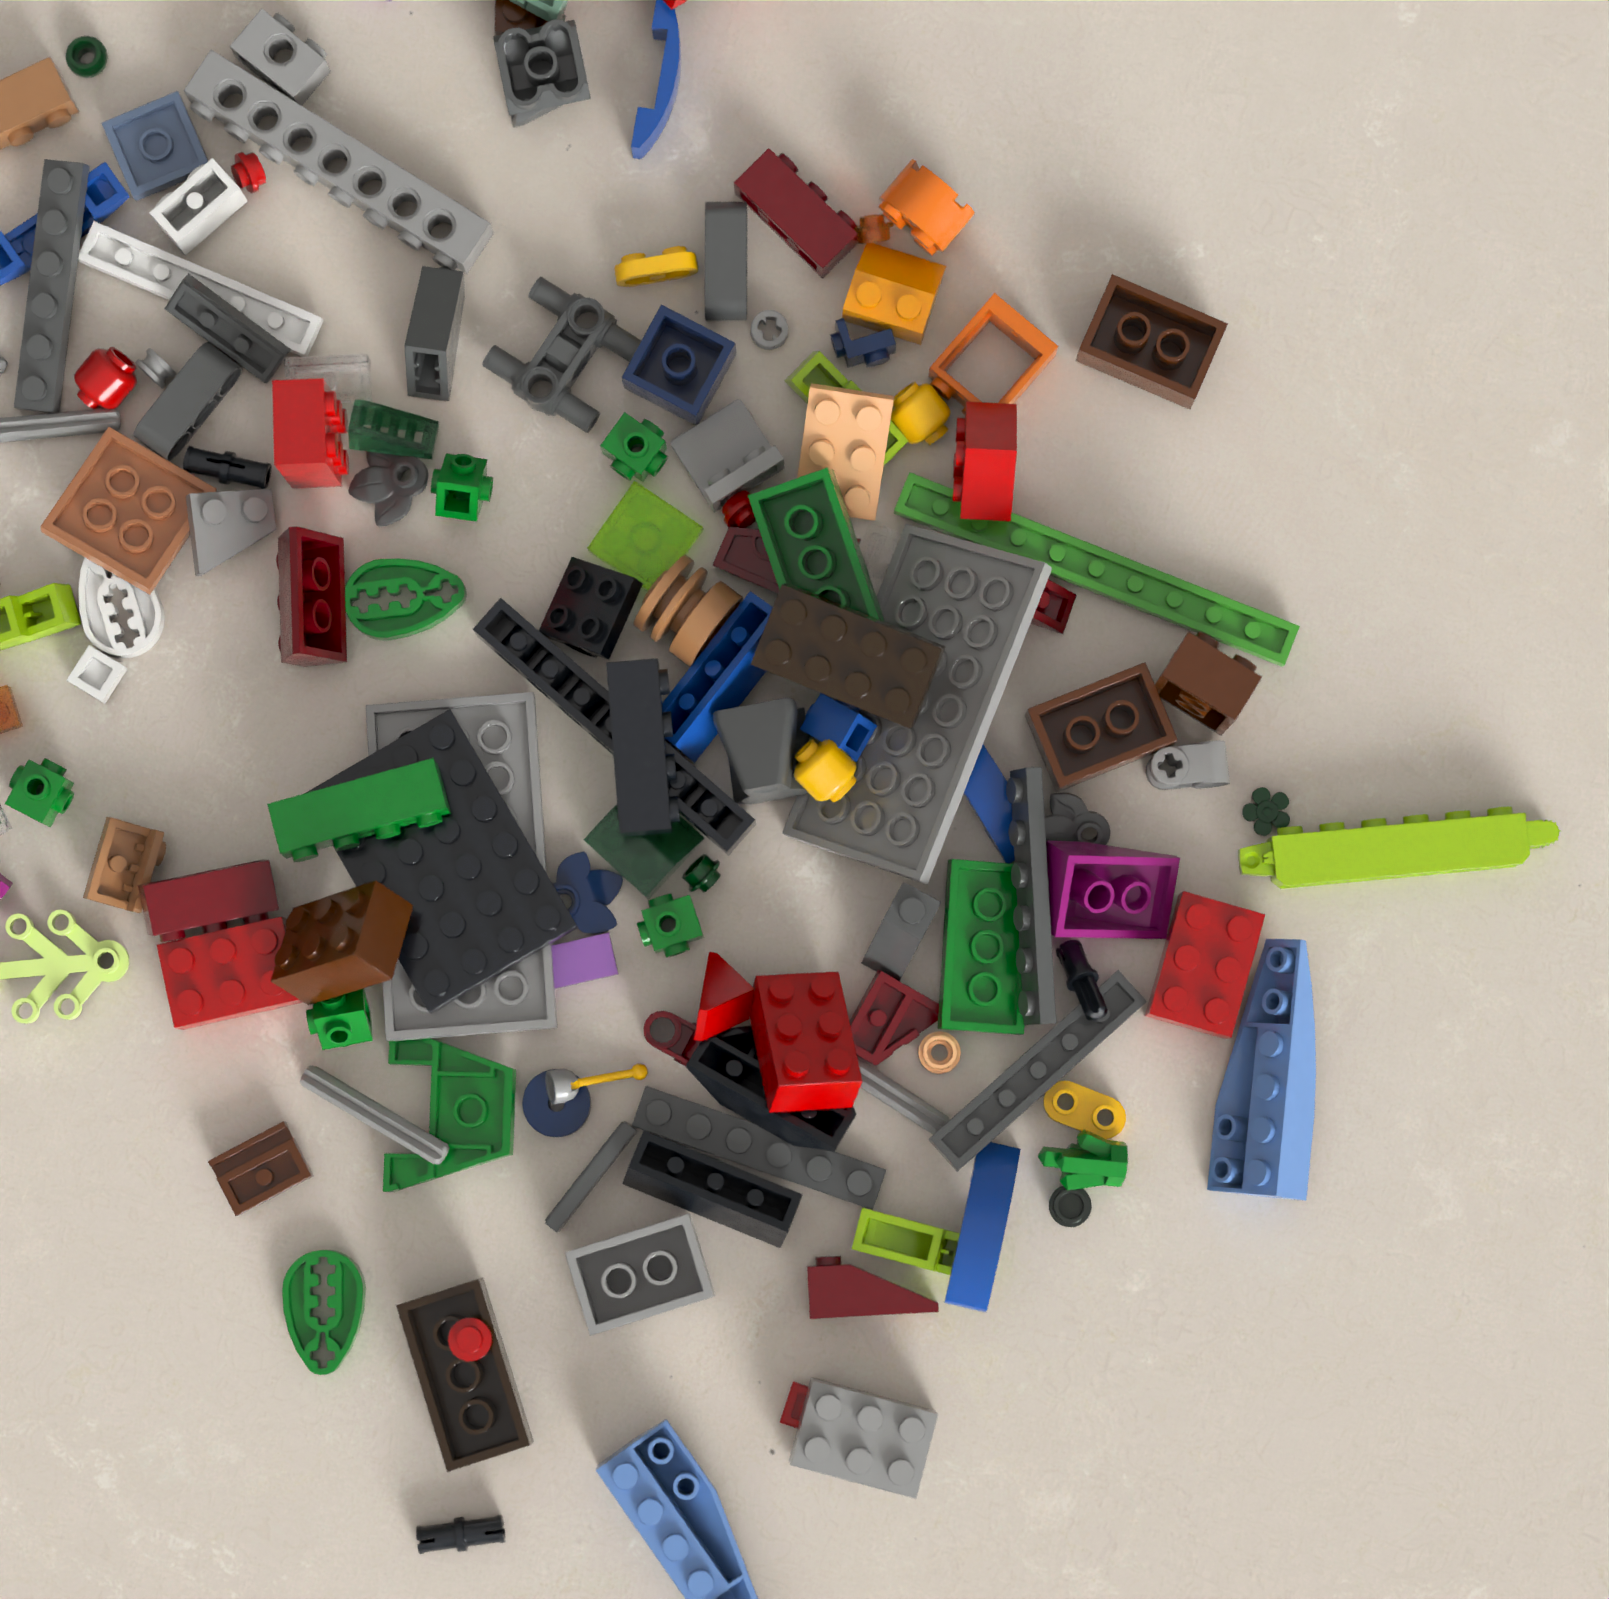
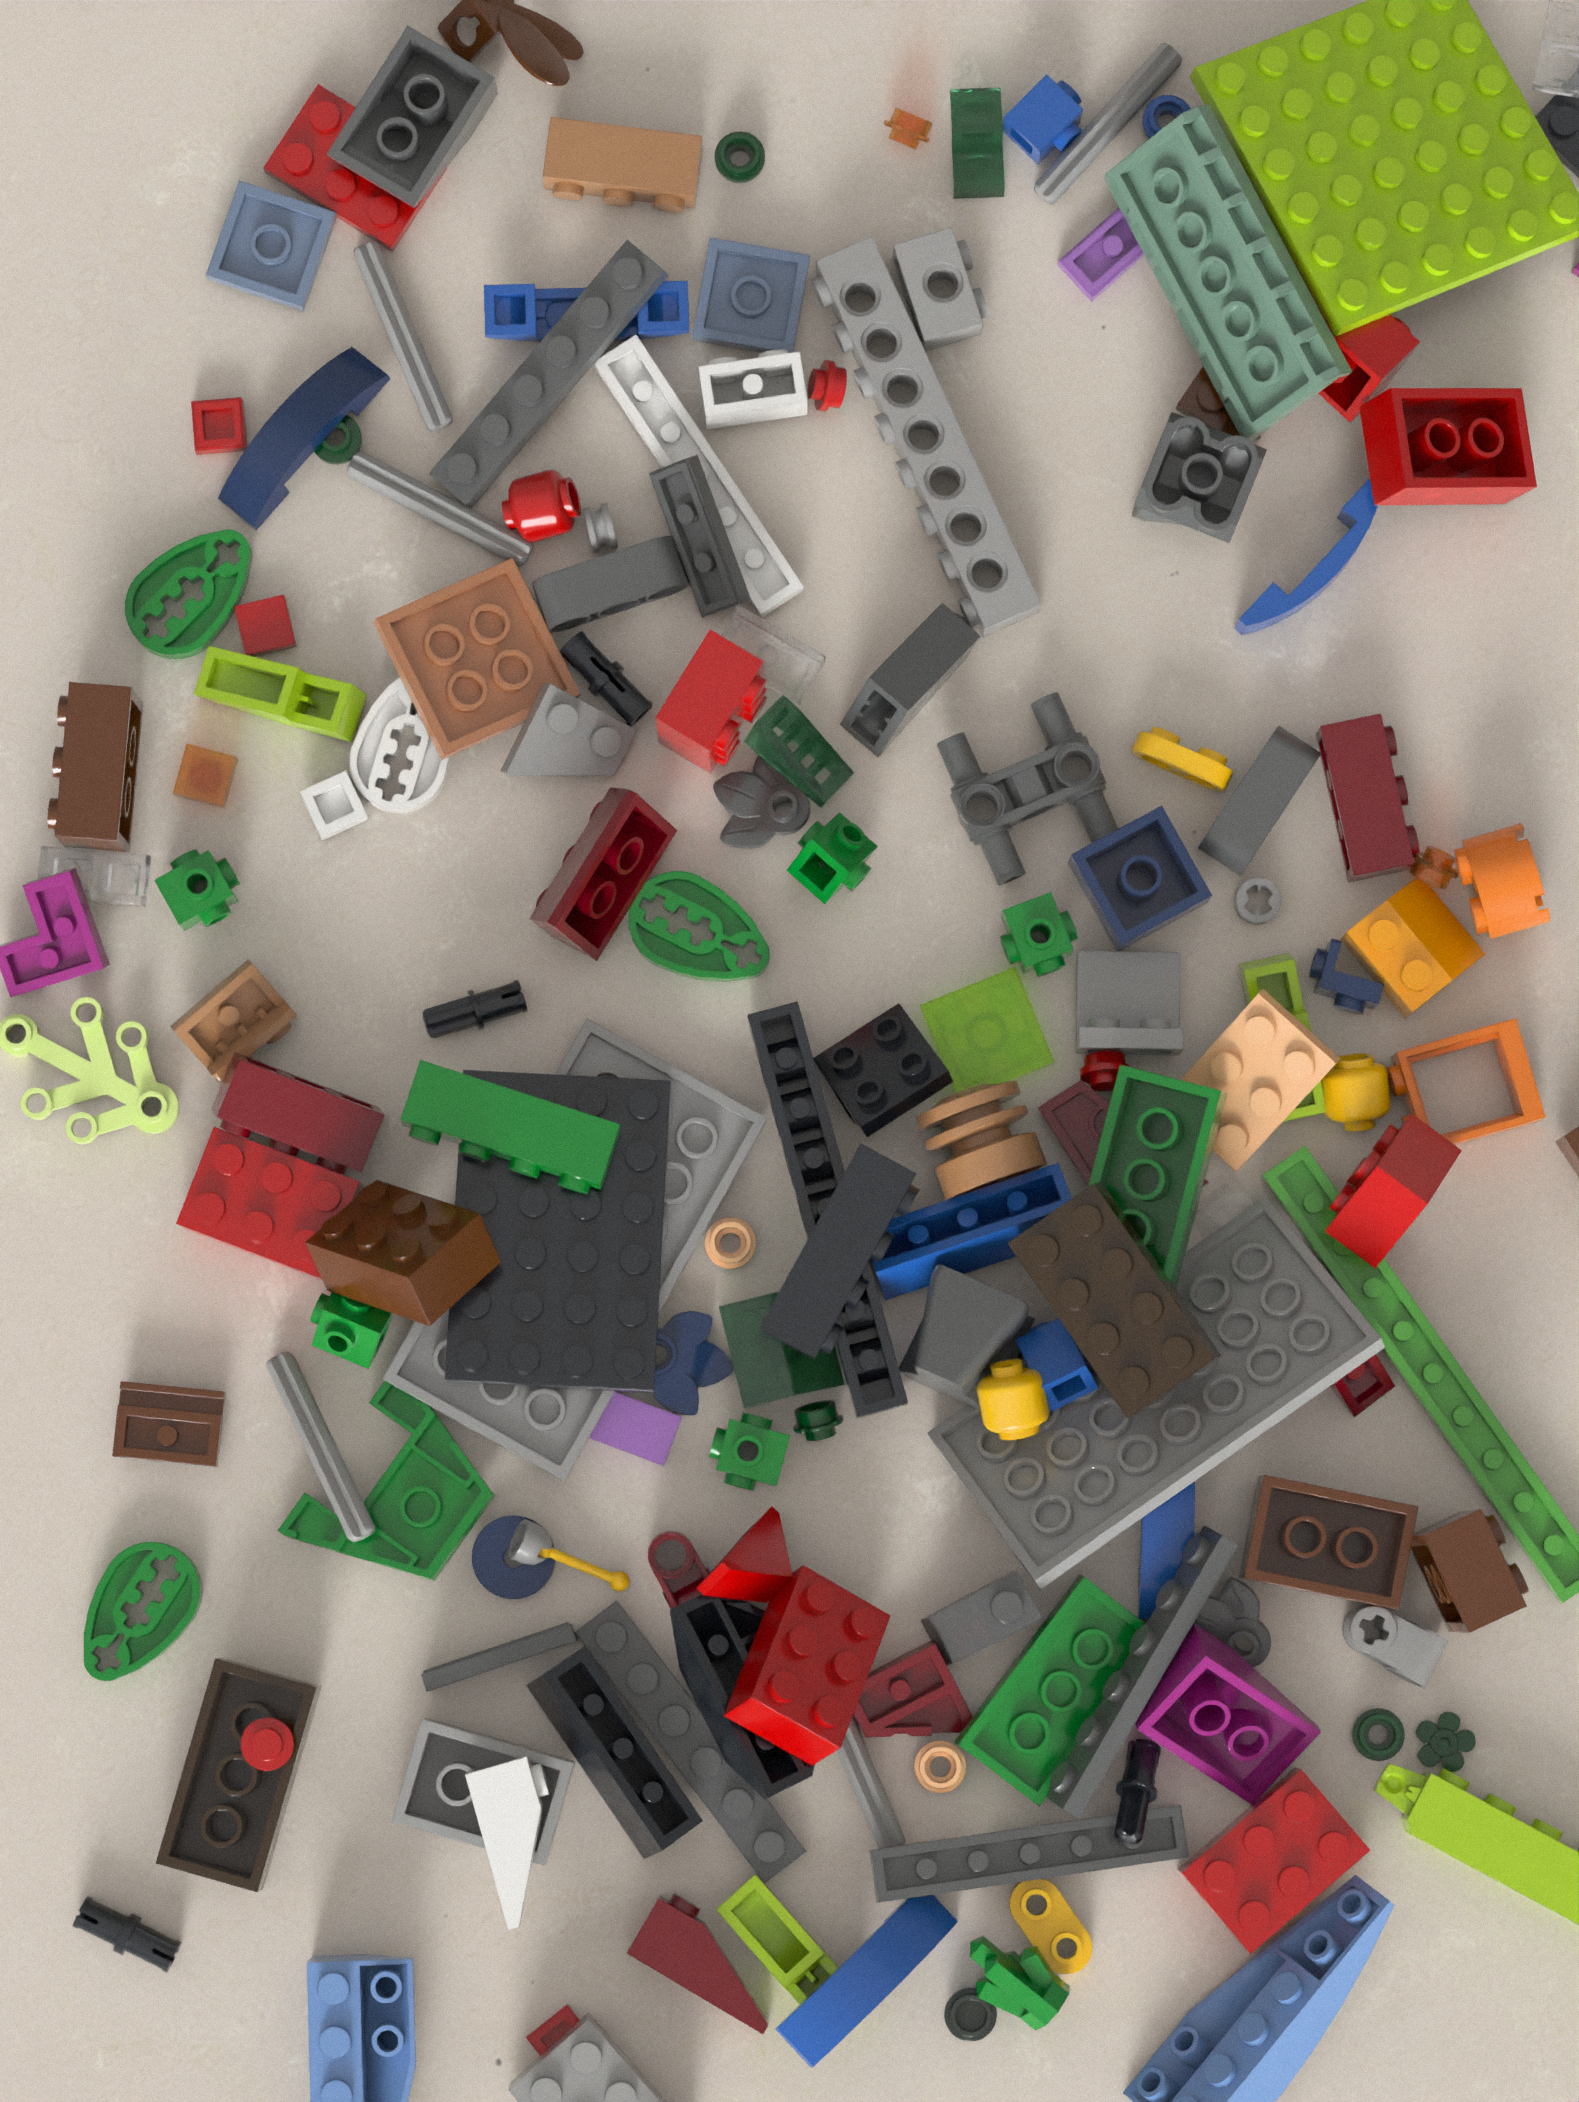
camera: 30 degrees right, 0 degrees up
(285, 750) = (474, 1010): none -> black axle
(554, 784) = (730, 1226): none -> light nougat plate
(669, 1279) = (509, 1819): none -> white slope
(1232, 832) = (1394, 1739): none -> dark green plate

